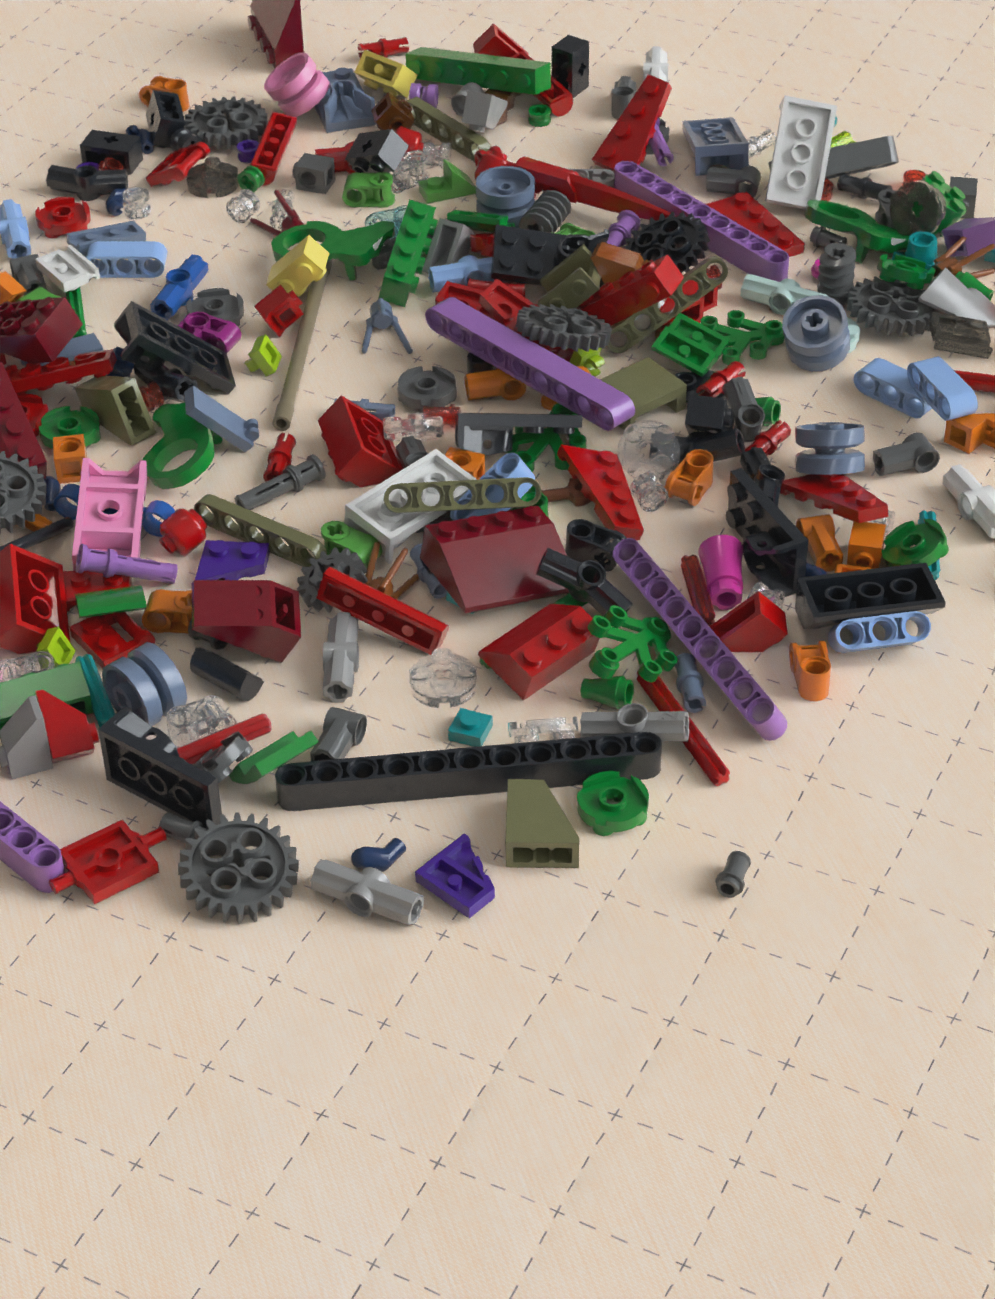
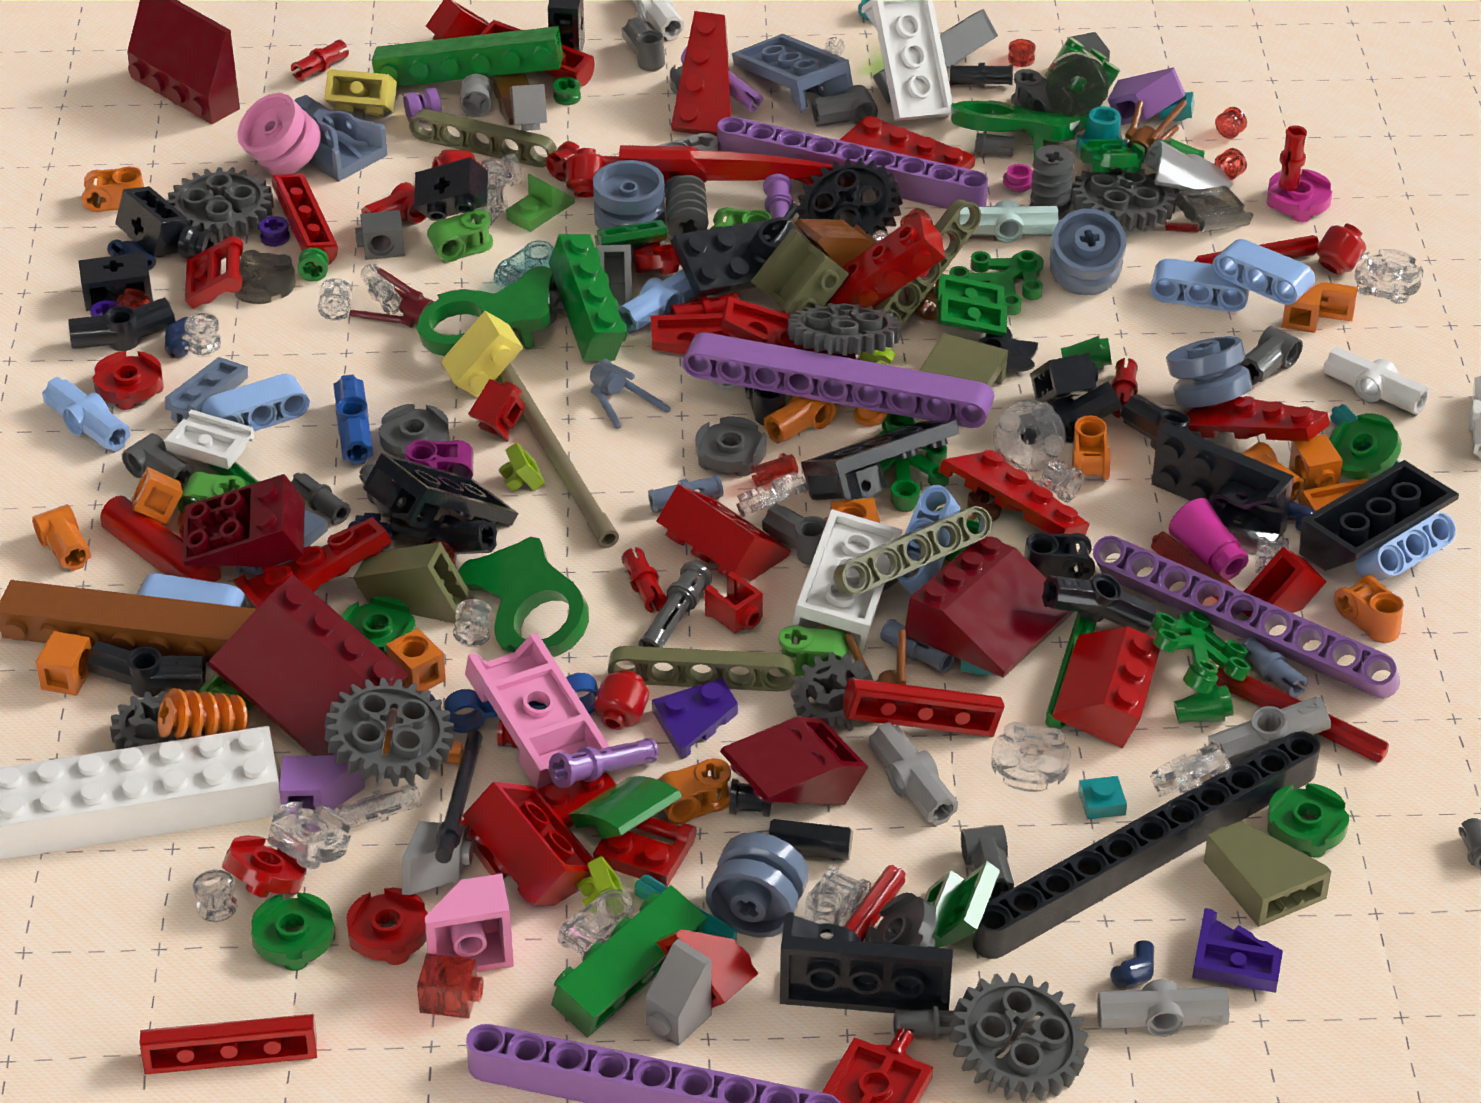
camera: 30 degrees left, 0 degrees up
(109, 332) = (321, 498): none -> dark grey axle
(132, 446) = (473, 623): none -> clear wheel
(220, 419) = (556, 555): sand blue hinge -> none
(324, 503) = (739, 608): none -> red window
(392, 113) = (415, 139): reddish brown brick -> none
(714, 385) = (1031, 336): red pin -> none
(744, 407) = (1073, 342): dark grey piece -> none
(923, 341) = (1184, 227): none -> red leg

